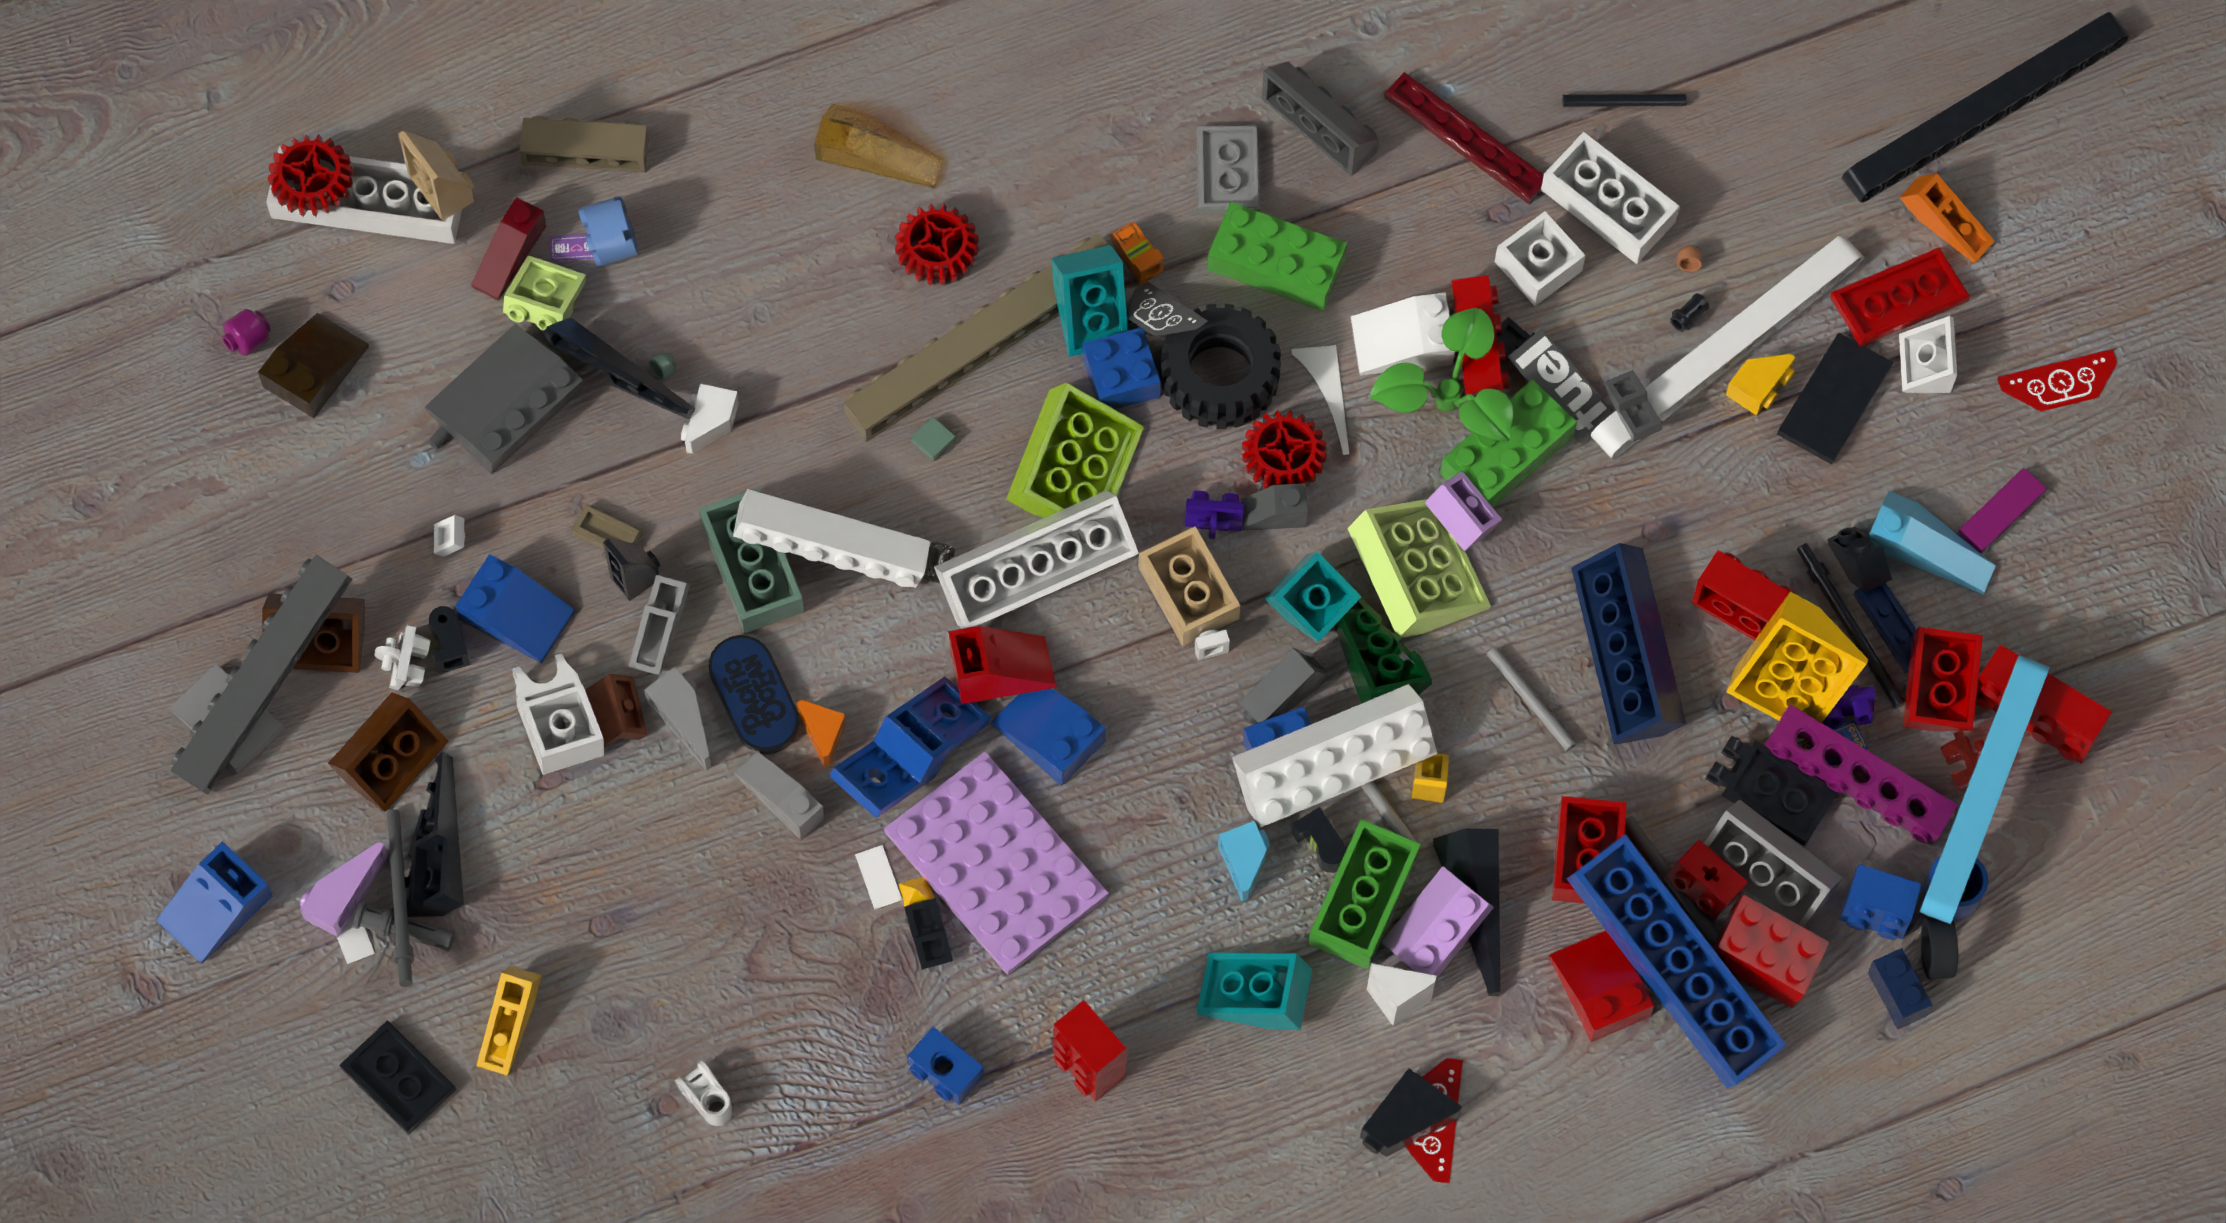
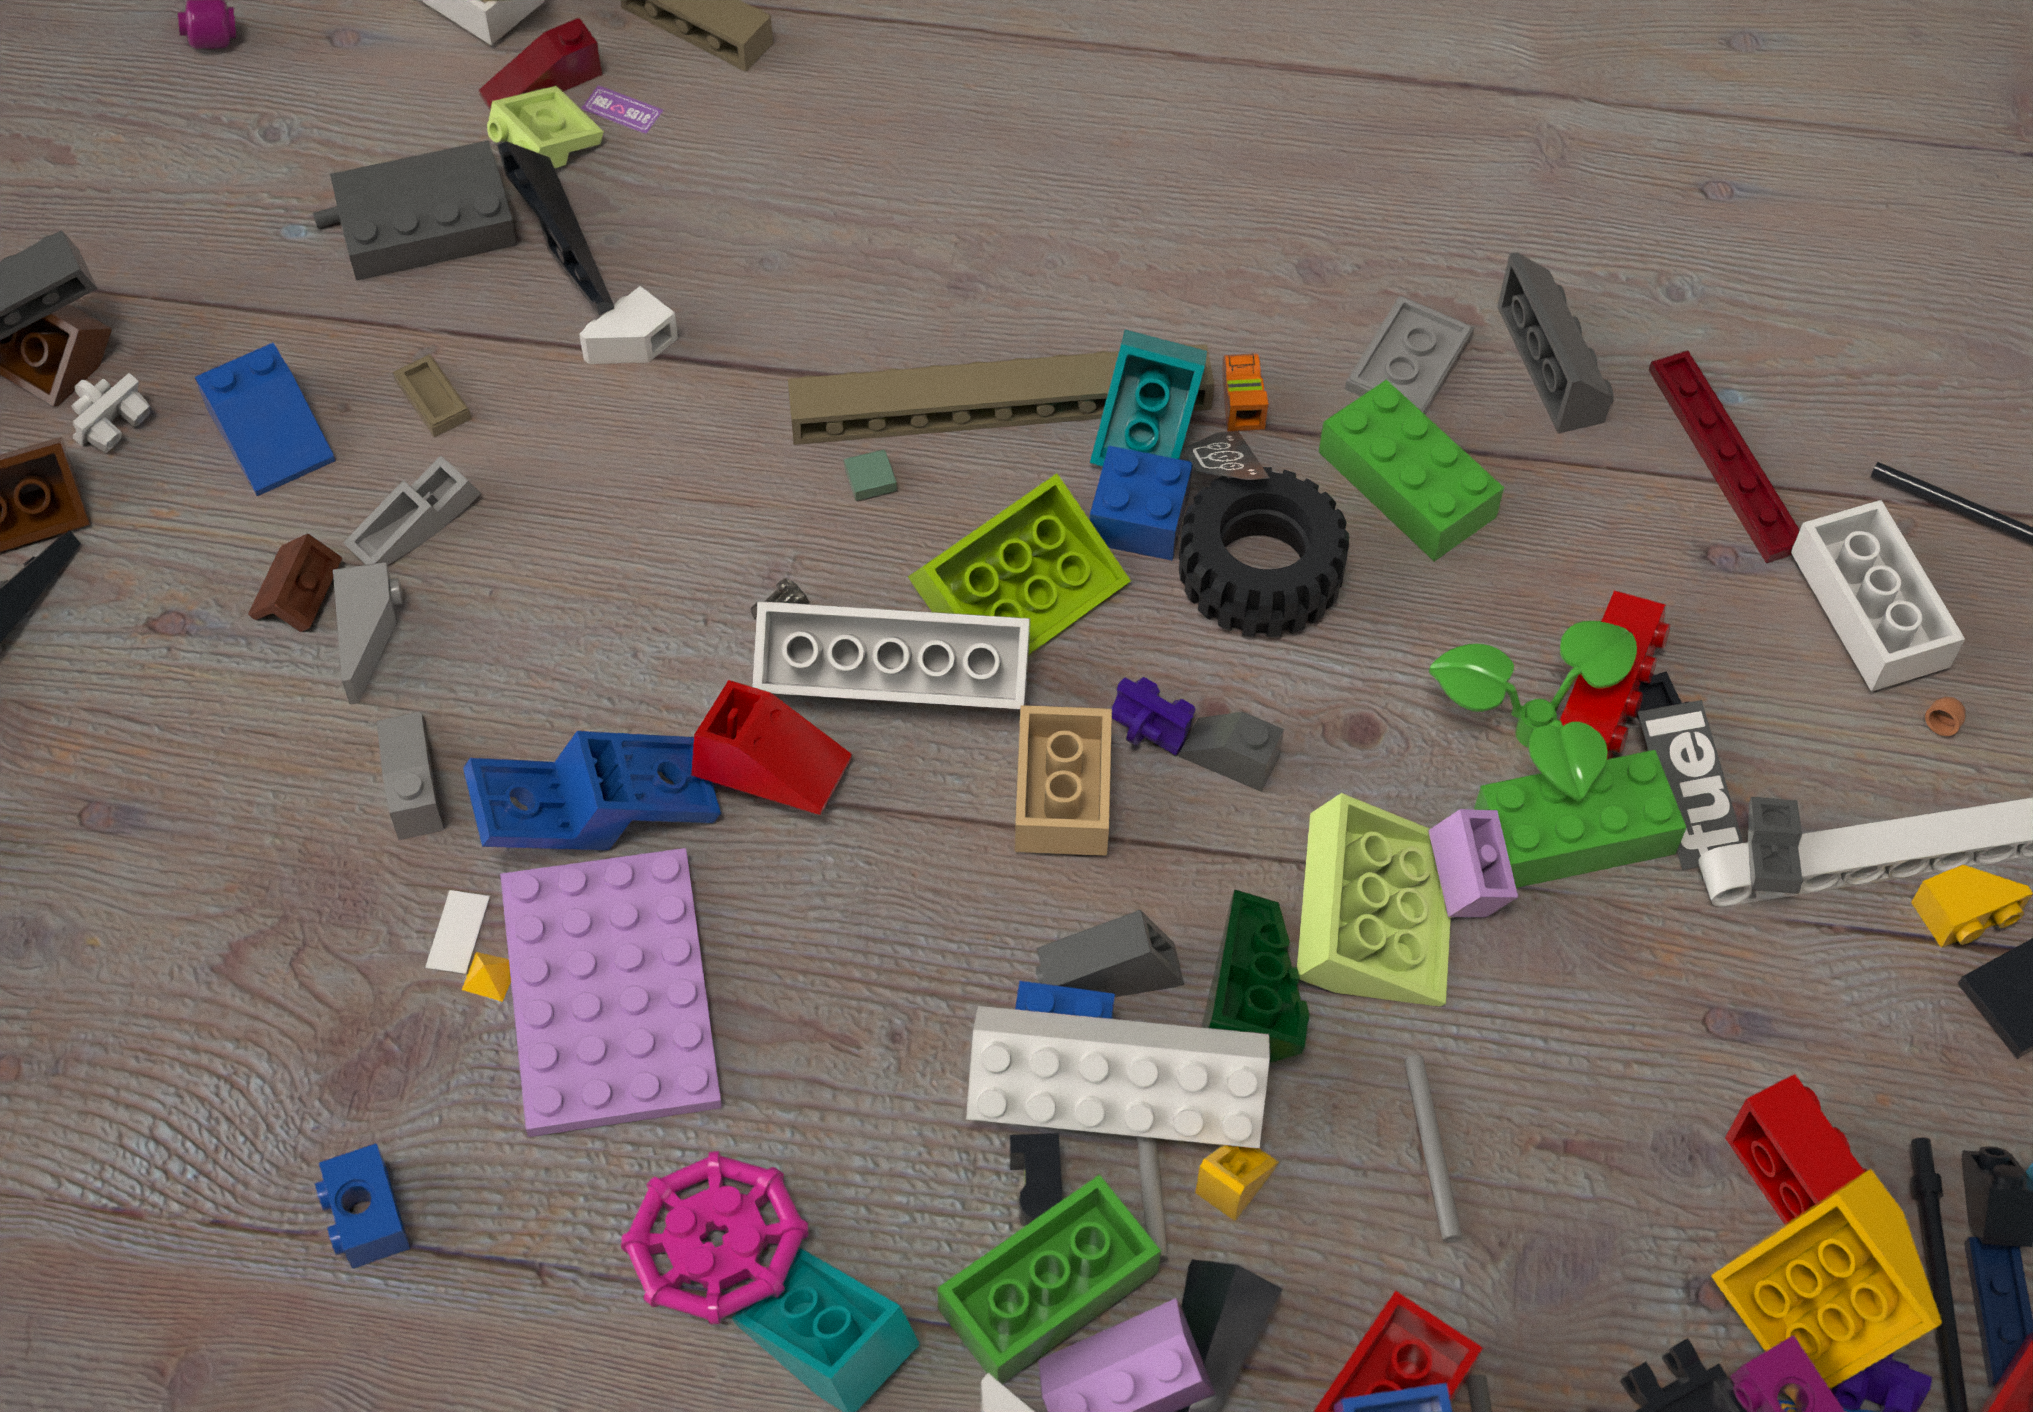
camera: 30 degrees right, 10 degrees down
(311, 364) = (250, 84): dark brown slope -> none
(447, 630) = (170, 419): black leg -> none
(449, 535) = (257, 314): white plate -> none
(558, 718) = (216, 556): white brick -> none
(609, 231) = (655, 96): medium blue brick -> none
(630, 566) = (416, 426): black slope -> none
(663, 365) = (618, 257): sand green hinge -> none
(702, 1090) = (53, 1070): white piece -> none
(753, 574) = (561, 496): sand green brick -> none
(753, 694) = (463, 646): tile -> none
(823, 727) = (511, 722): orange slope -> none
(831, 539) = (662, 509): white brick -> none
(865, 144) = (1008, 152): clear yellow wedge -> none
(928, 933) = (466, 1030): black slope -> none
(956, 231) = (988, 271): red gear -> none
(1051, 731) = (783, 869): blue slope -> none
(1088, 1051) = (538, 1282): red brick -> none
(1154, 955) = (710, 1210): none -> dark pink plate
(1211, 644) = (1050, 865): white plate -> none
(1244, 855) = (924, 1147): medium azure slope -> none
(1308, 445) = (1266, 667): red gear -> none
(1313, 596) = (1214, 870): teal slope -> none
(1324, 367) = (1395, 625): white sticker -> none
(1402, 334) = (1522, 623): white slope -> none
(1539, 258) = (1745, 620): white brick -> none
(1628, 644) = (1605, 1146): dark blue slope -> none
(1684, 317) = (1901, 780): black pin -> none

